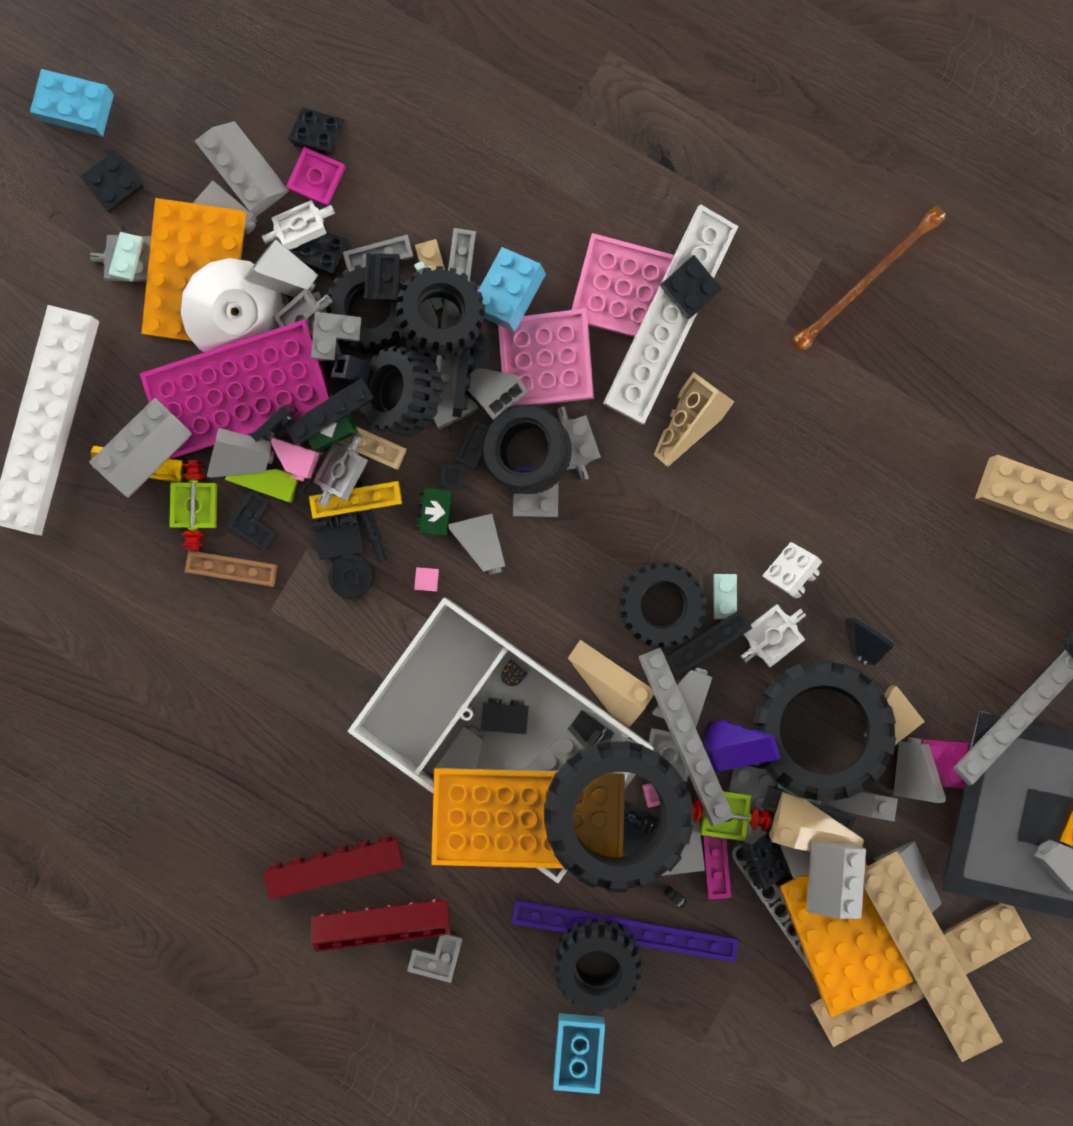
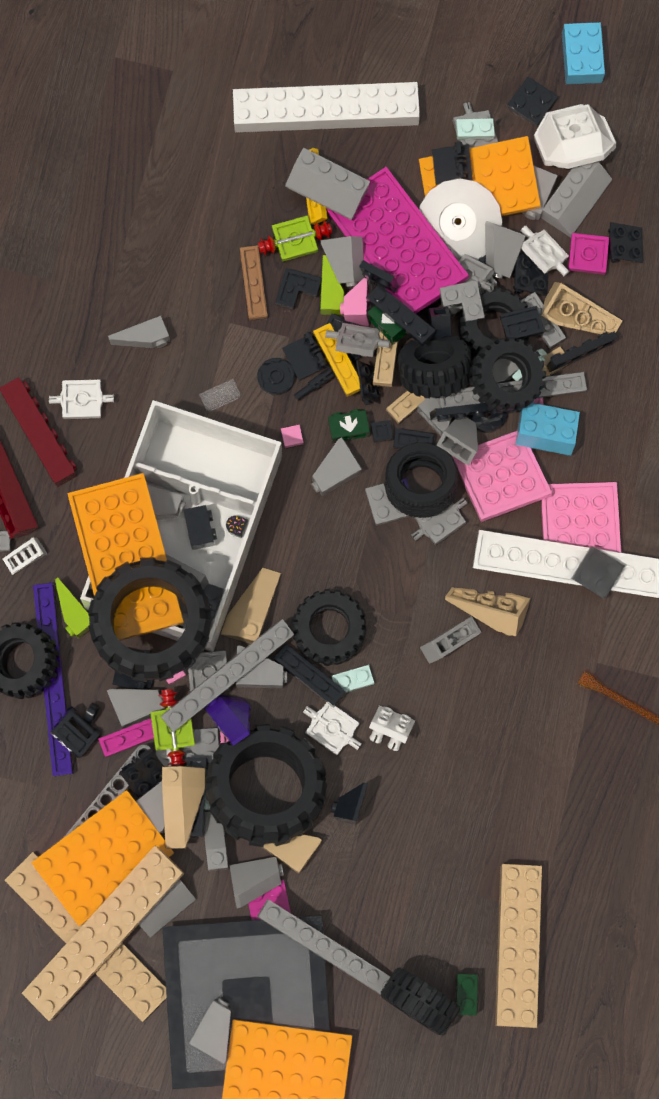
camera: 75 degrees right, 10 degrees down
(160, 296) = (452, 163): none -> black hinge
(172, 147) = (573, 137): none -> white piece
(256, 709) = (146, 334): none -> light grey slope
(310, 806) = (81, 399): none -> white plate
(353, 646) = (220, 395): none -> clear plate
(378, 216) = (574, 311): none -> tan wedge
(400, 477) = (368, 391): none -> black hinge
(427, 213) = (576, 353): none -> black plate
(432, 443) = (404, 406): none -> tan plate
(467, 908) = (20, 550): none -> white slope
(548, 889) = (73, 612): none -> lime slope
(699, 930) = (70, 736): none -> black plate
(715, 475) = (450, 640): none -> light grey slope
(836, 880) = (146, 828): light grey slope -> none

